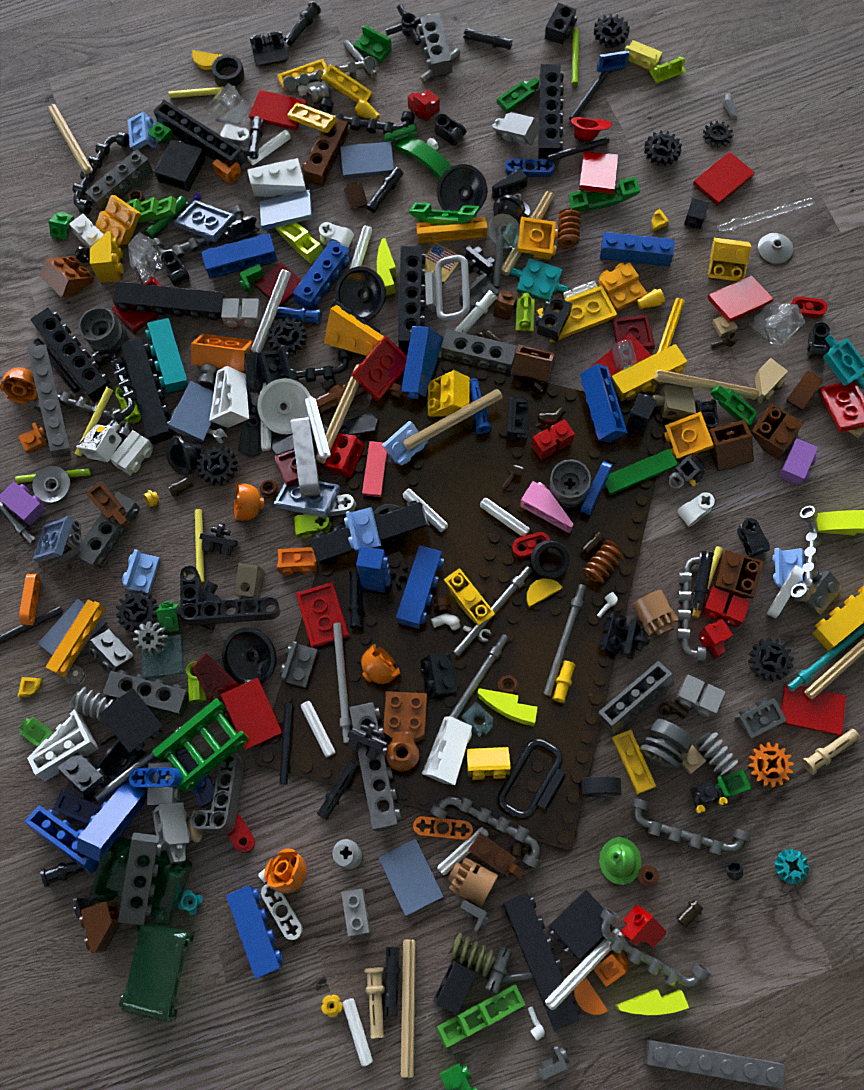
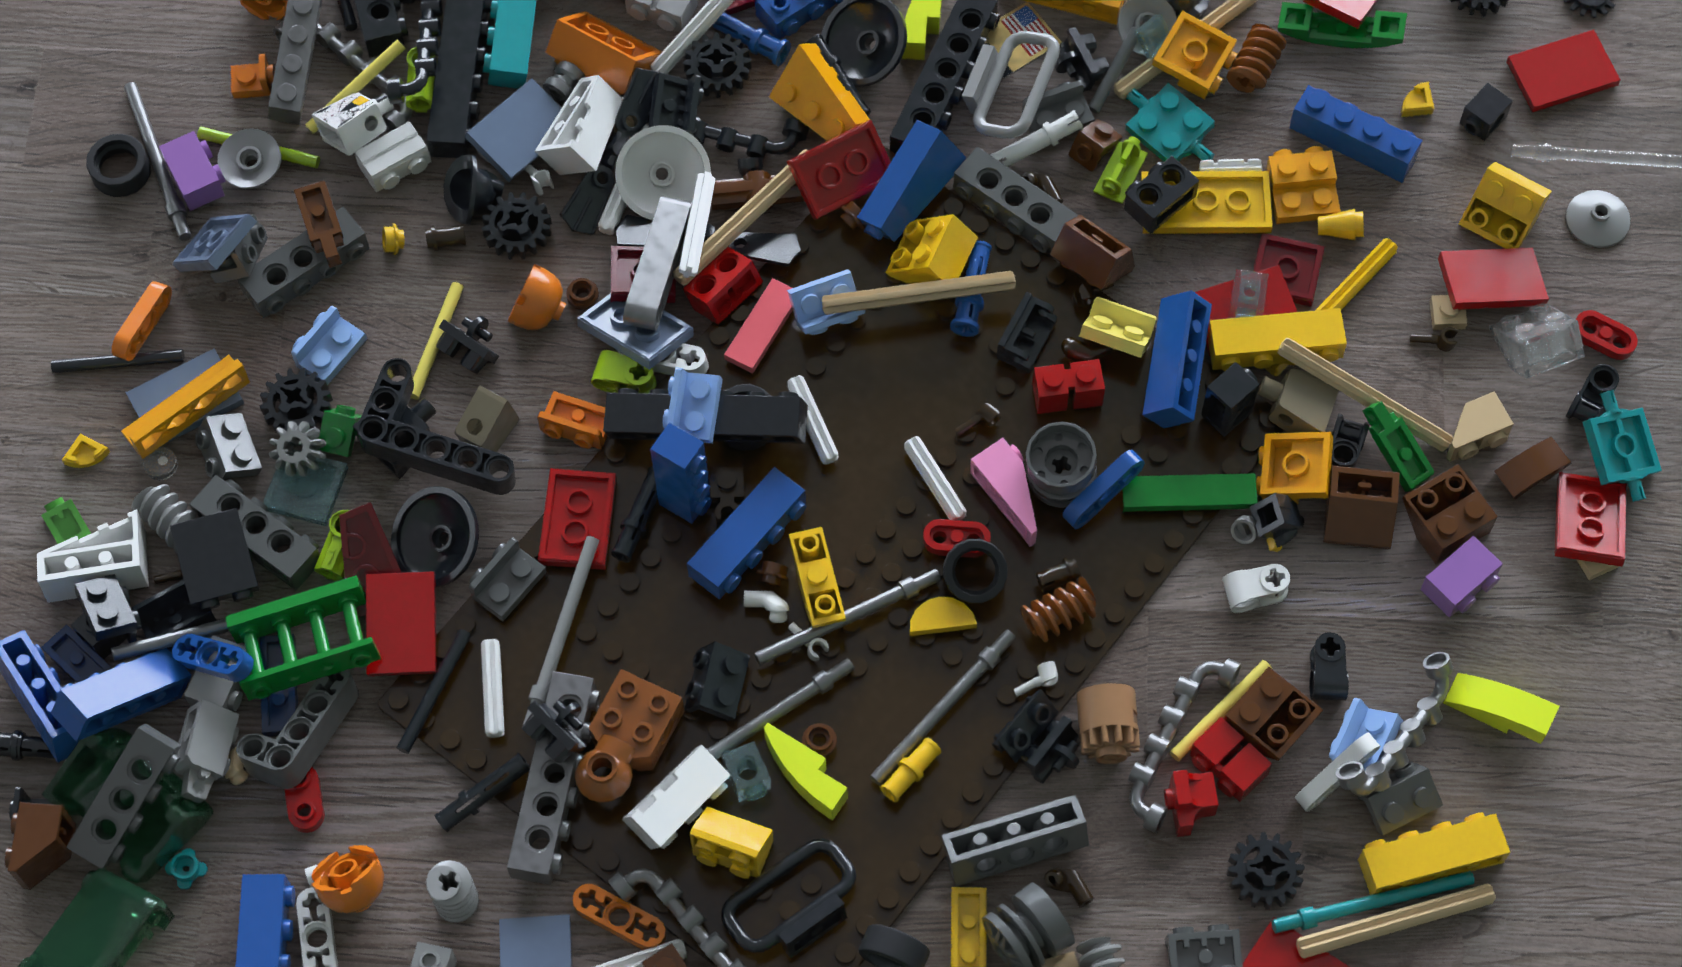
camera: 20 degrees right, 5 degrees down
(378, 666) = (628, 628): orange cylinder -> none
(564, 397) = (1118, 327): none -> light yellow bracket
(702, 581) = (1201, 713): black pin -> none
(709, 701) = (1131, 895): light grey piece -> none

